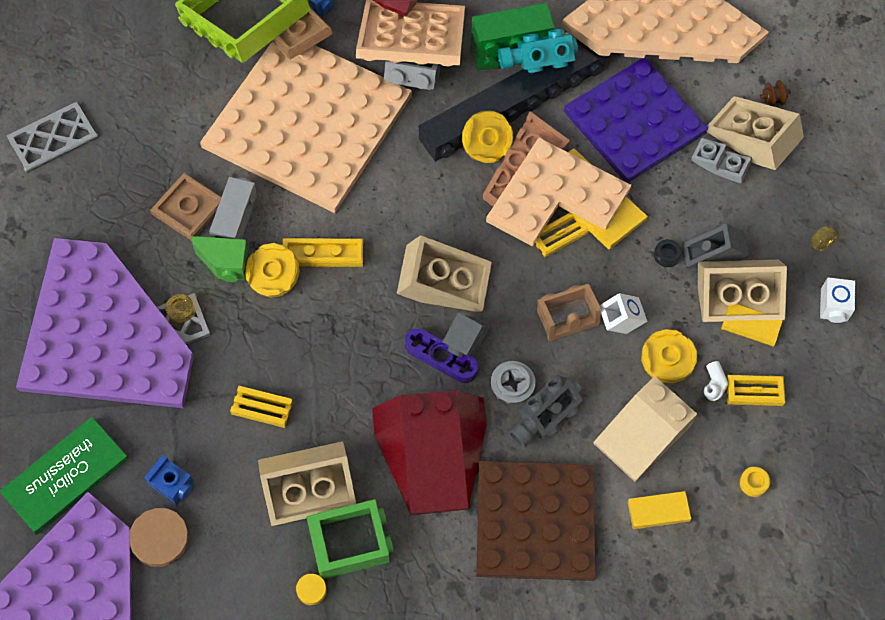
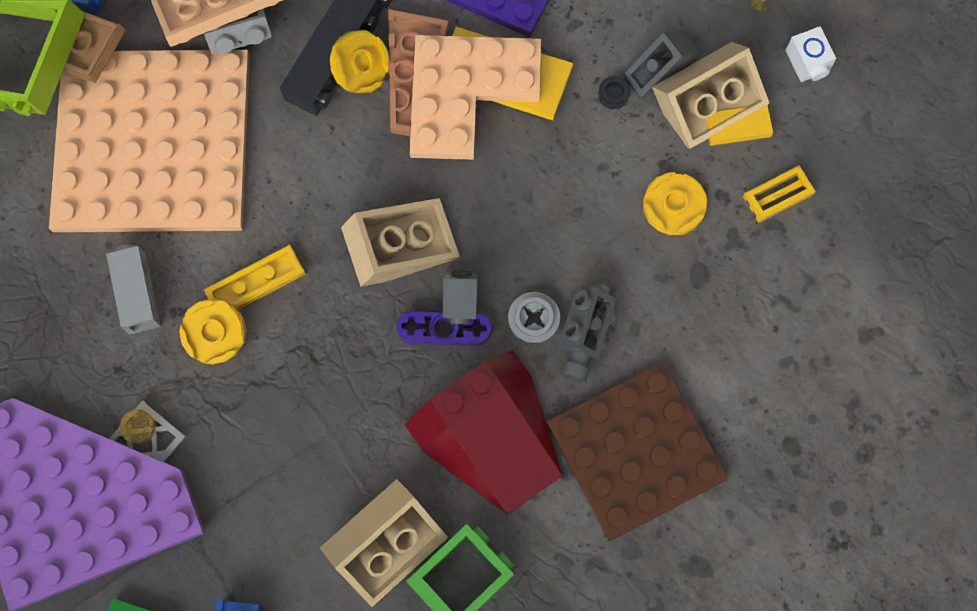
camera: 25 degrees left, 10 degrees up
(187, 206) = (77, 308): medium nougat tile -> none
(223, 256) = (151, 345): bright green slope -> none
(263, 396) = (260, 492): yellow tile -> none
(546, 251) = (480, 150): yellow tile -> none
(569, 311) = (550, 210): medium nougat window -> none
(623, 313) = (607, 184): white brick -> none
(645, 428) = (695, 295): tan slope -> none
(659, 510) = (752, 372): yellow tile -> none
(718, 382) = (739, 206): white arm -> none
(754, 481) = (828, 290): yellow tile -> none

